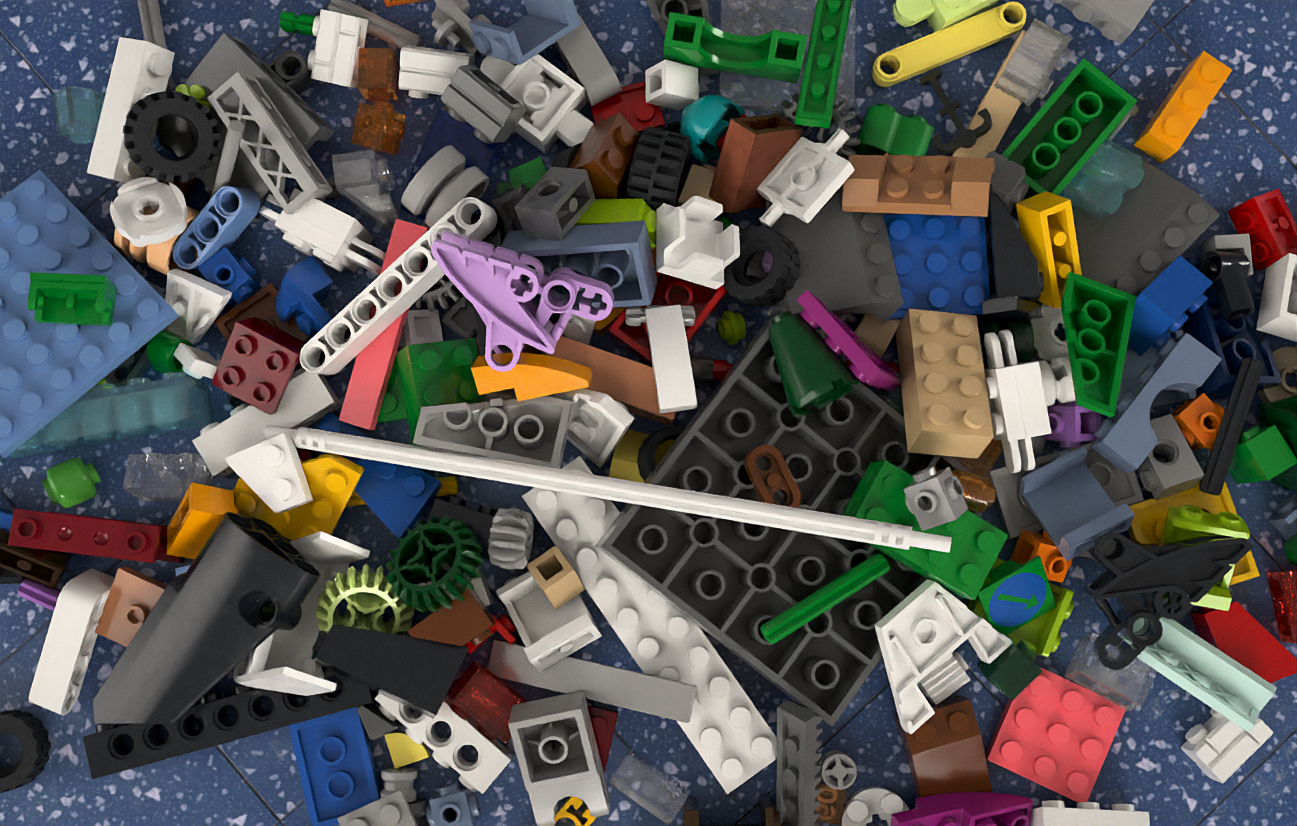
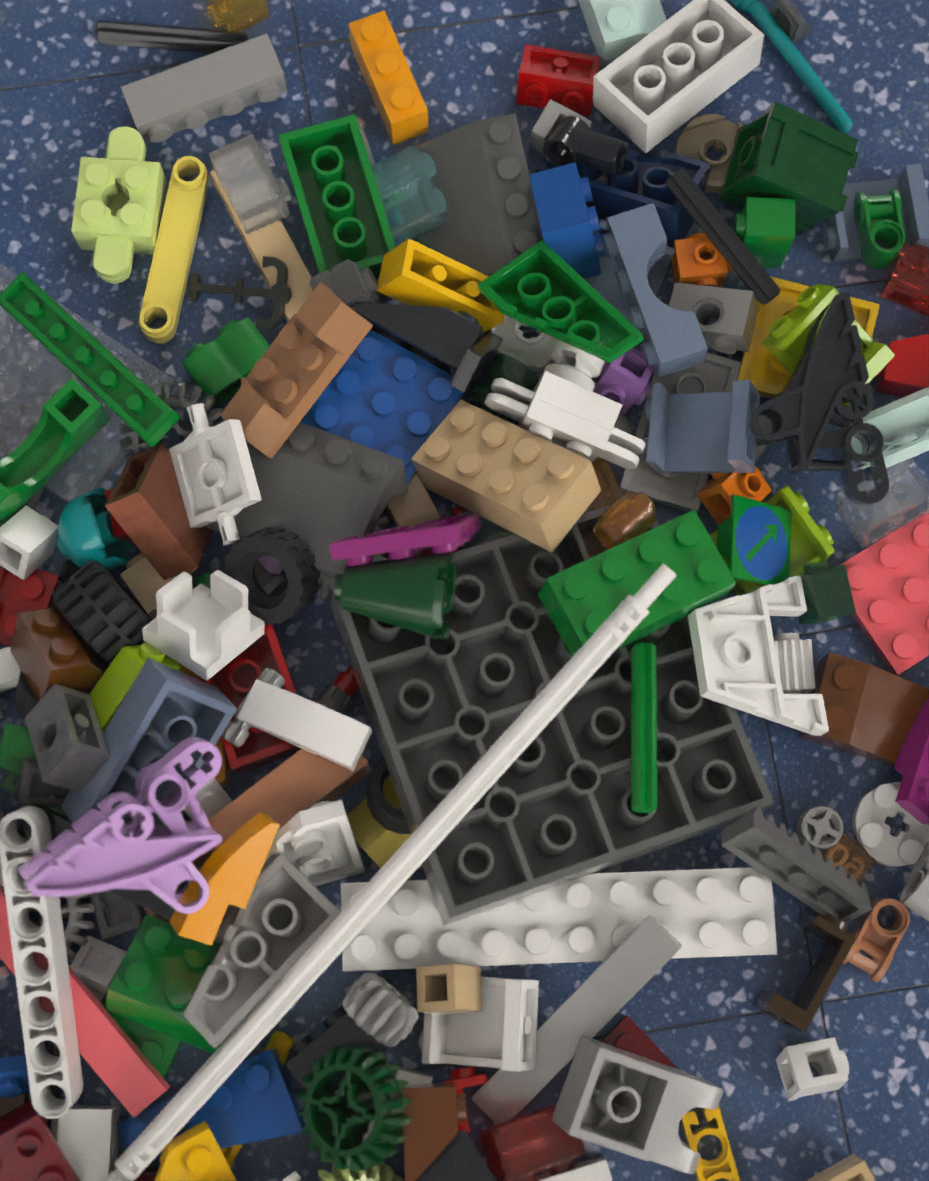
camera: 60 degrees left, 5 degrees down
(648, 786) = (720, 1031): clear brick -> none
(731, 327) = (311, 644): lime plate -> none
(774, 478) = (493, 700): reddish brown plate -> none
(935, 497) = (614, 554): light grey brick -> none

